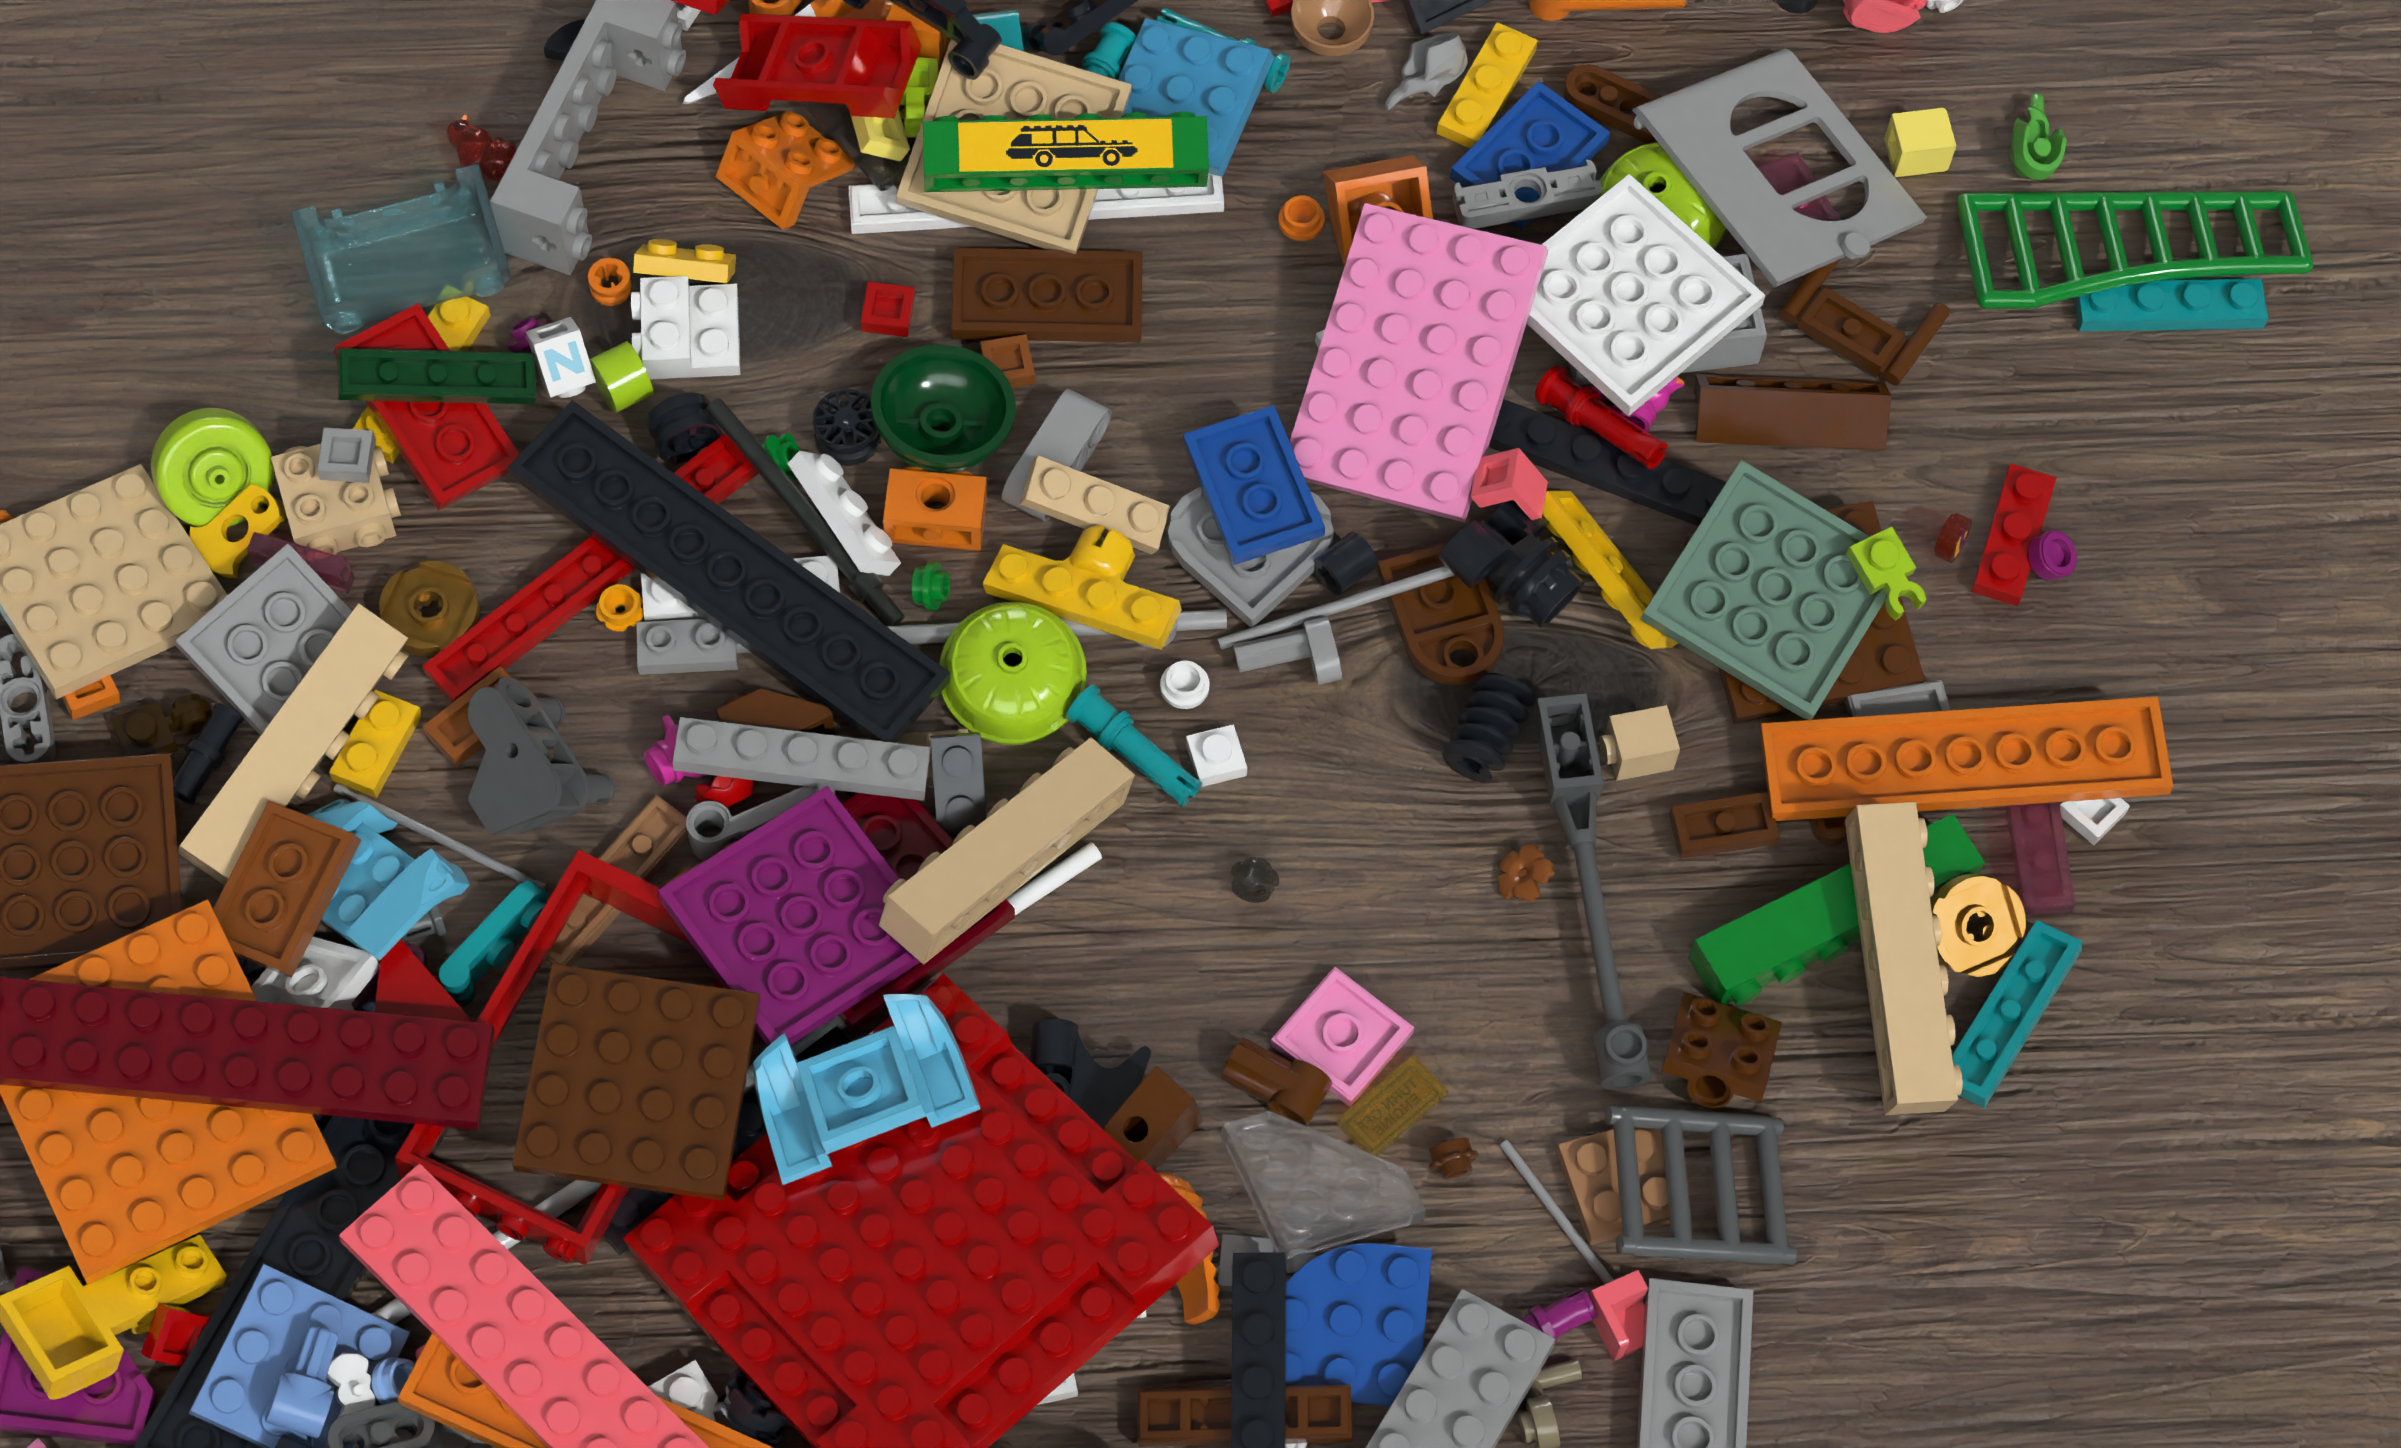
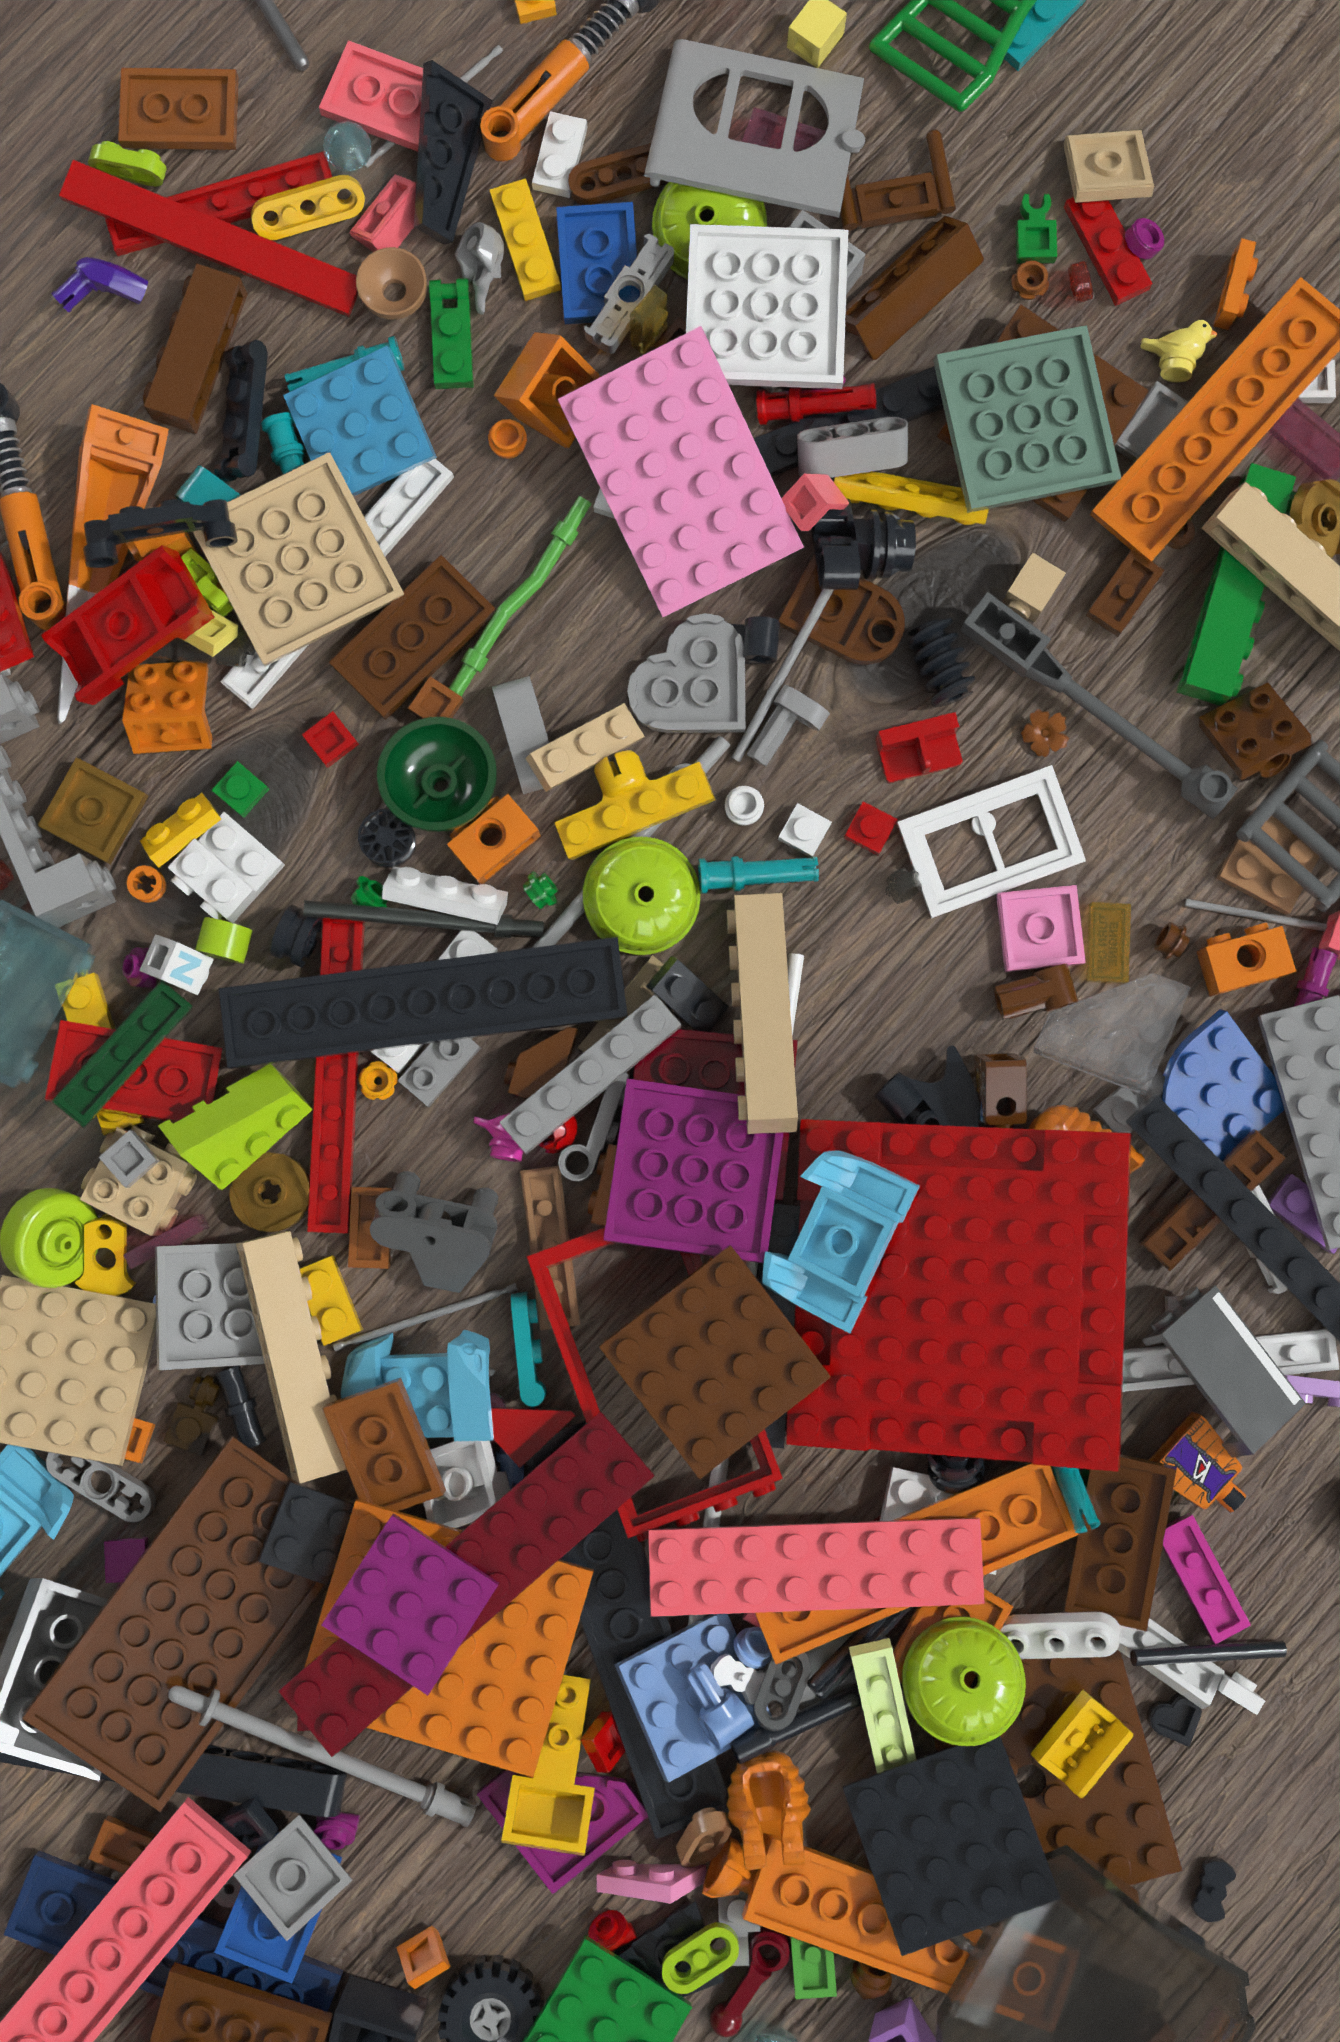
camera: 40 degrees left, 20 degrees up
(135, 889) = (306, 1533): none -> black plate
(154, 1008) = (410, 1604): none -> magenta plate
(462, 523) = (239, 1126): none -> lime wedge
(632, 186) = (93, 810): none -> pearl gold plate
(770, 282) = (240, 789): none -> green plate
(1065, 153) = (341, 538): brick -> none
(1253, 485) = (665, 645): blue plate -> none
(1265, 332) = (563, 535): none -> bright green bar
(1277, 808) = (870, 828): none -> red plate
(1343, 102) = (451, 335): none -> green plate
(1395, 780) = (919, 748): none -> red panel
(1396, 876) = (983, 823): none -> white door
(1516, 1263) = (1269, 959): none -> orange brick
(1523, 216) = (649, 320): none -> clear yellow plate
(1595, 43) = (559, 153): none -> white plate
(1596, 483) = (853, 447): none -> light grey beam
(1886, 565) = (1078, 344): lime plate -> none
(1913, 488) = (1032, 270): none -> dark orange plate
(1951, 467) = (1036, 236): none -> green plate
(1990, 673) = (1180, 350): none -> light yellow animal
(2078, 468) = (1108, 166): none -> tan tile
(2085, 672) = (1240, 269): none -> orange plate

